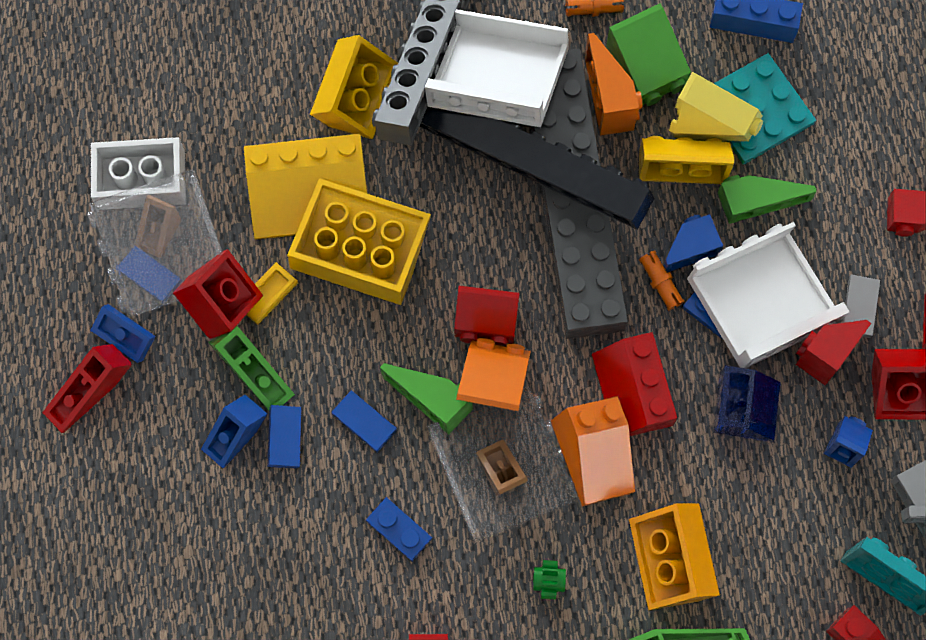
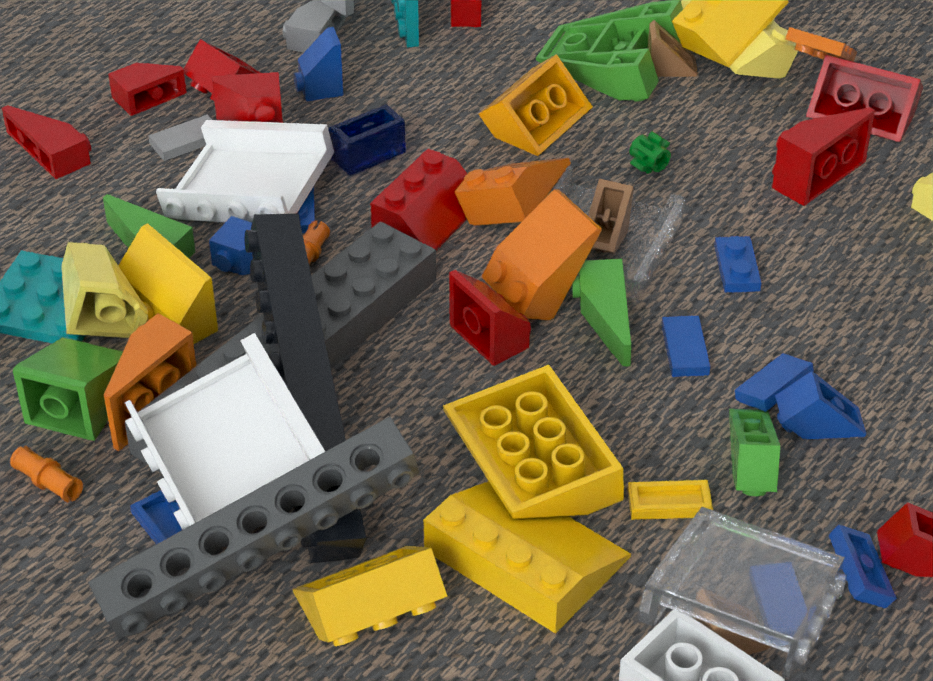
camera: 135 degrees left, 30 degrees down
(218, 295) = (732, 492): red slope -> none

